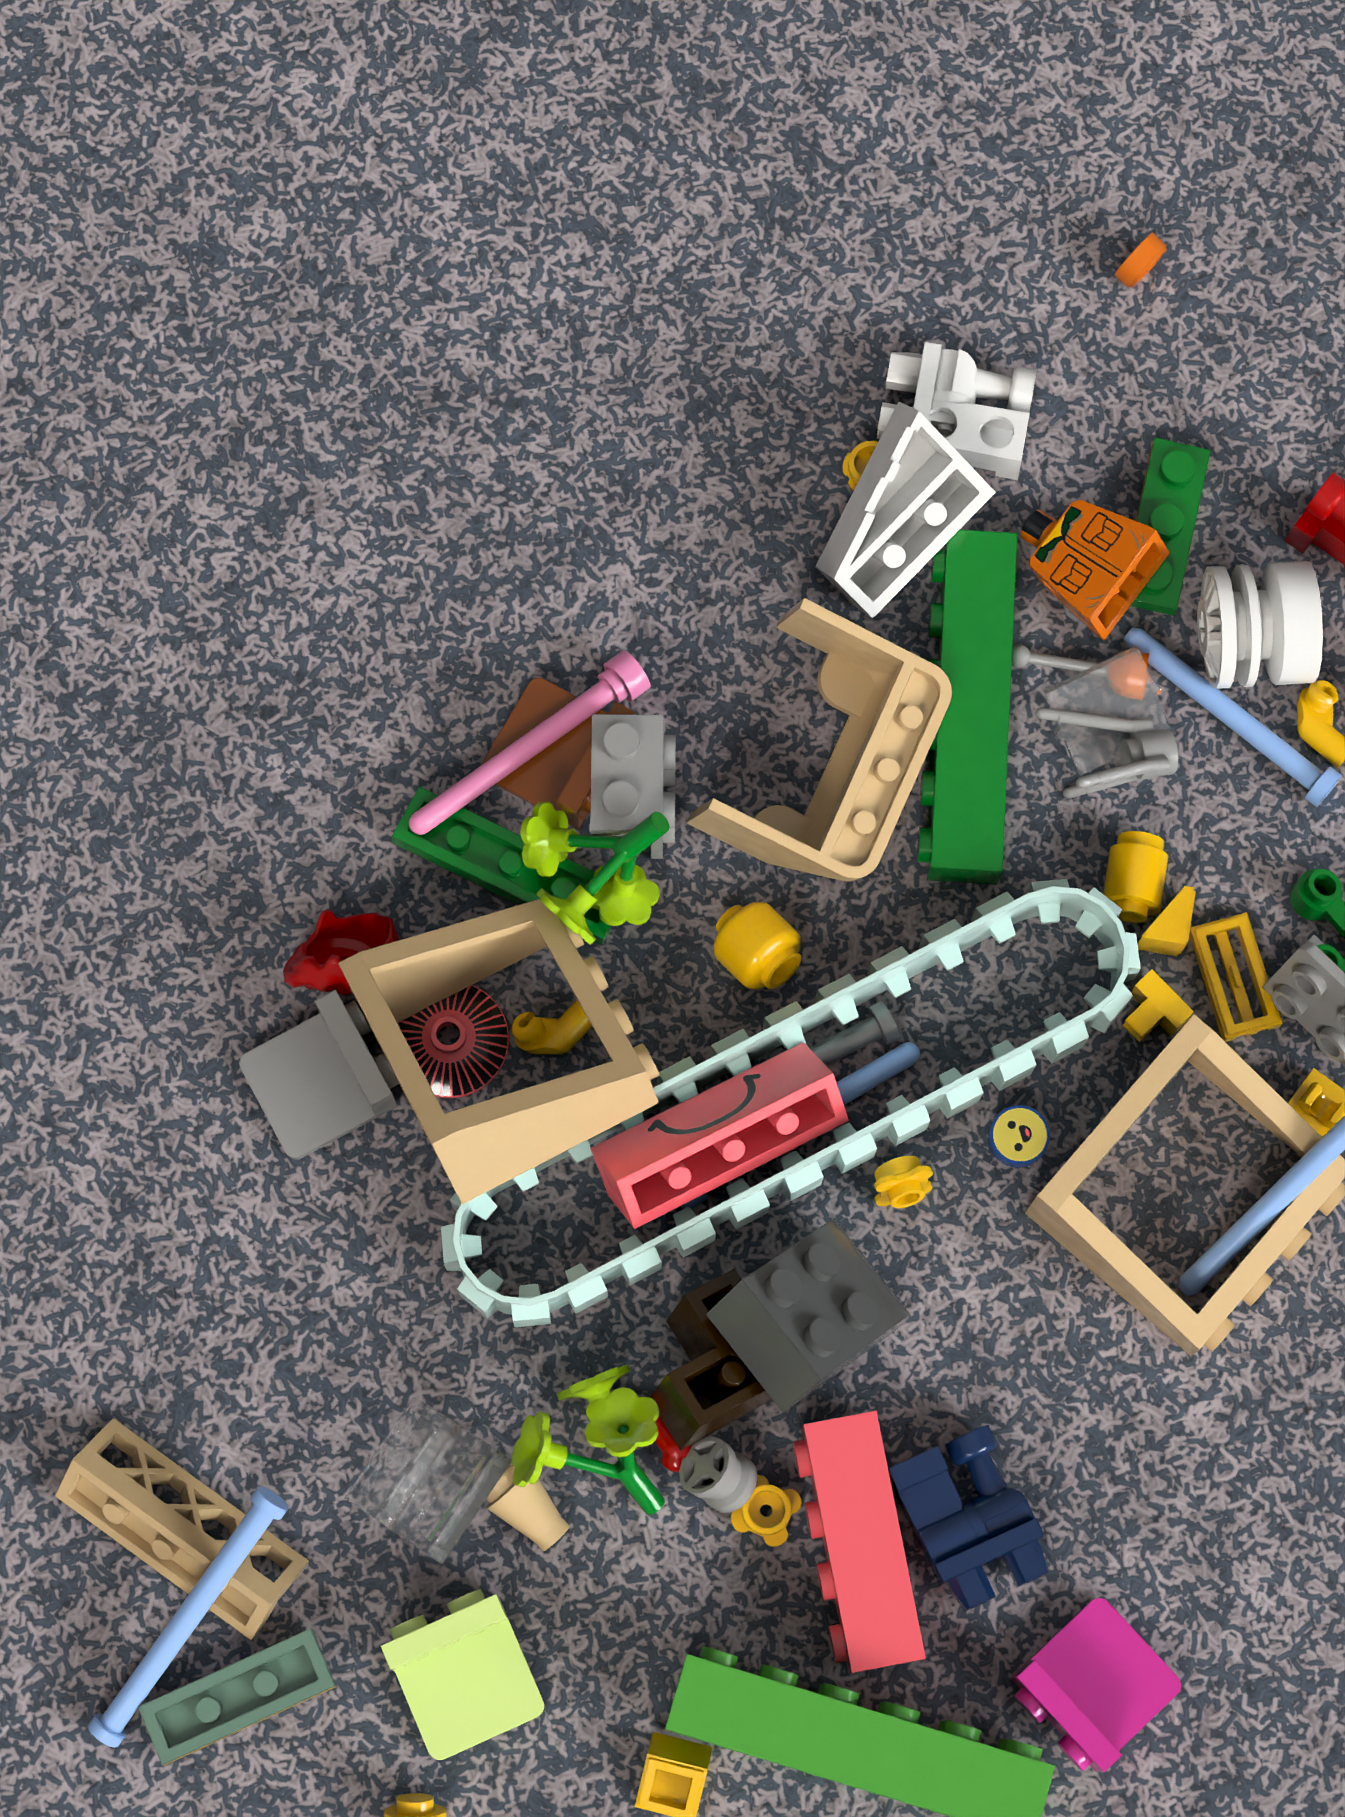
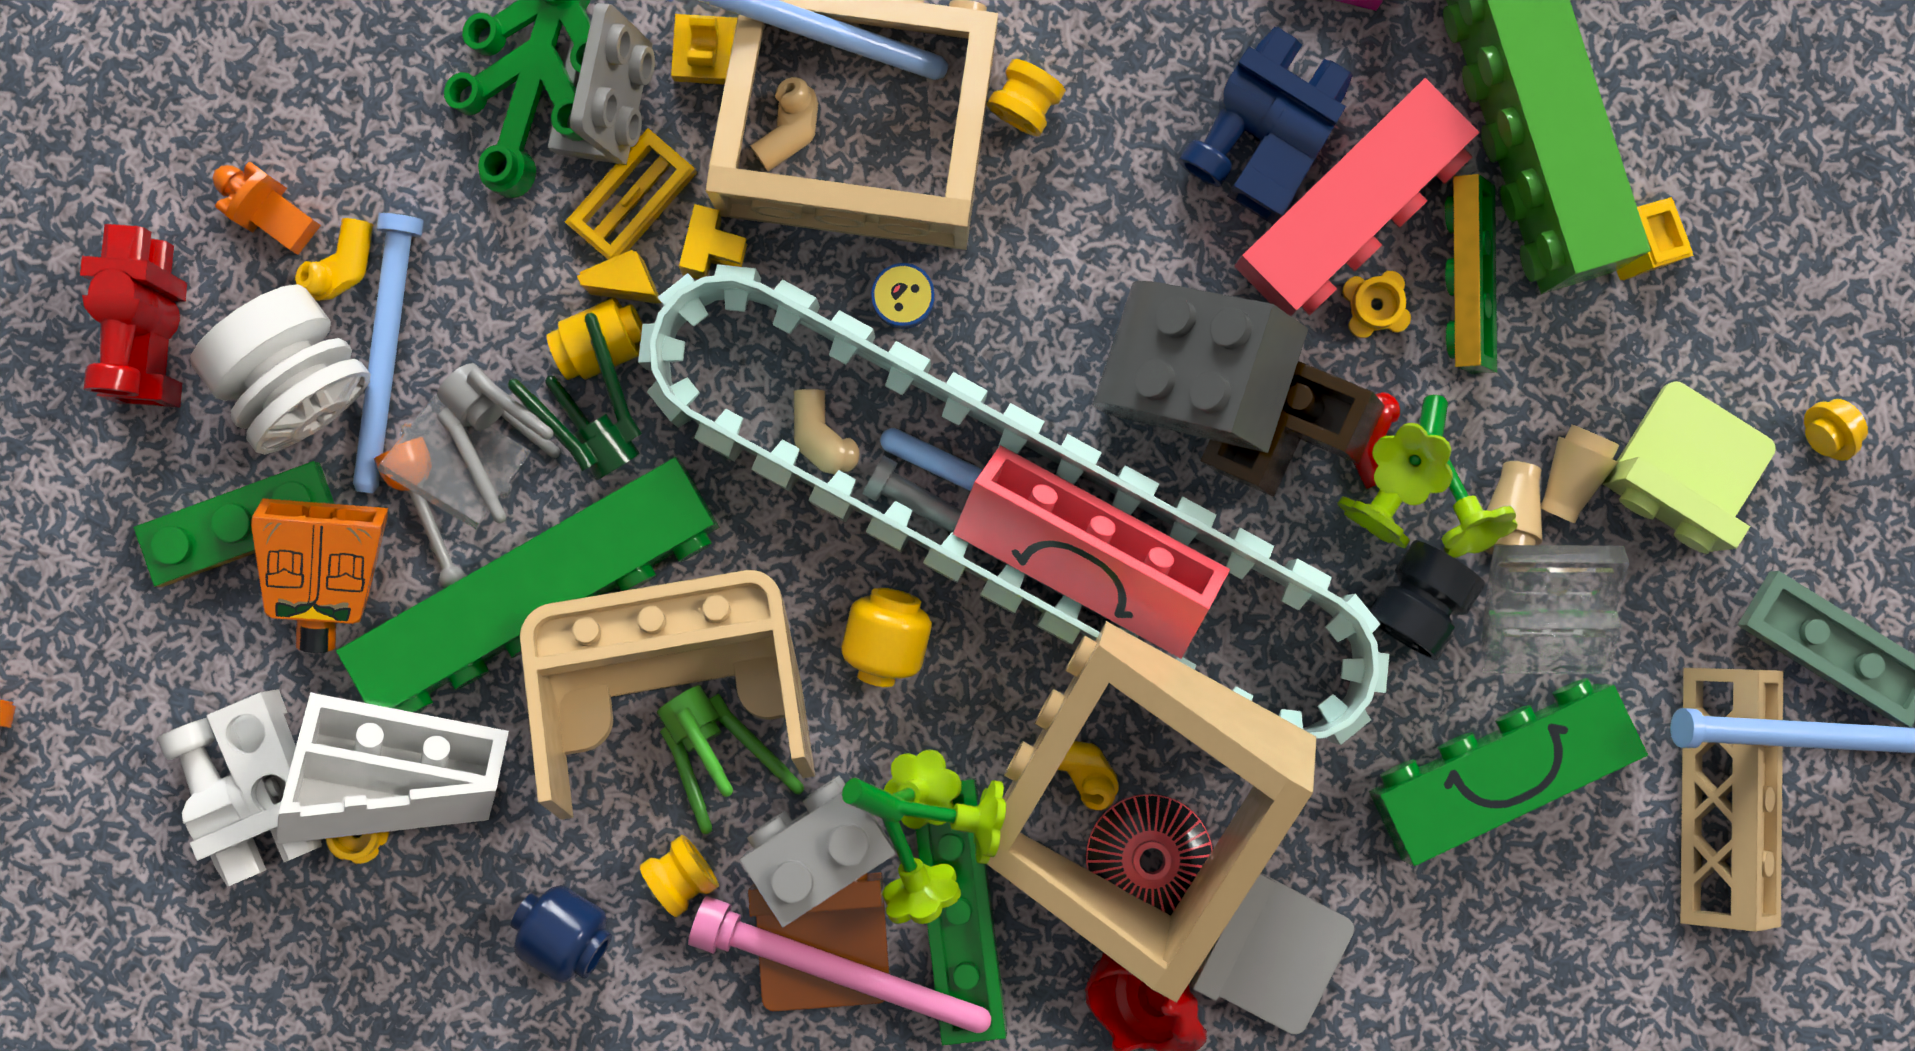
camera: 125 degrees left, 10 degrees up
(327, 1355) = (1507, 771): none -> green brick
(504, 1380) = (1429, 592): none -> black wheel
(524, 1581) = (1577, 472): none -> tan cone
(678, 676) = (679, 876): none -> yellow wheel
(694, 564) = (560, 934): none -> dark blue head
(718, 1474) = (1394, 366): light grey wheel -> none
(738, 1602) = (1472, 274): none -> plate
(787, 759) = (691, 724): none -> bright green plant
(902, 1182) = (1015, 369): yellow plate -> none
(948, 994) = (817, 440): none -> tan arm
(1048, 828) = (596, 444): none -> dark green plant
(1117, 1334) = (1026, 97): none -> yellow wheel
(1212, 1141) = (794, 123): none -> tan arm

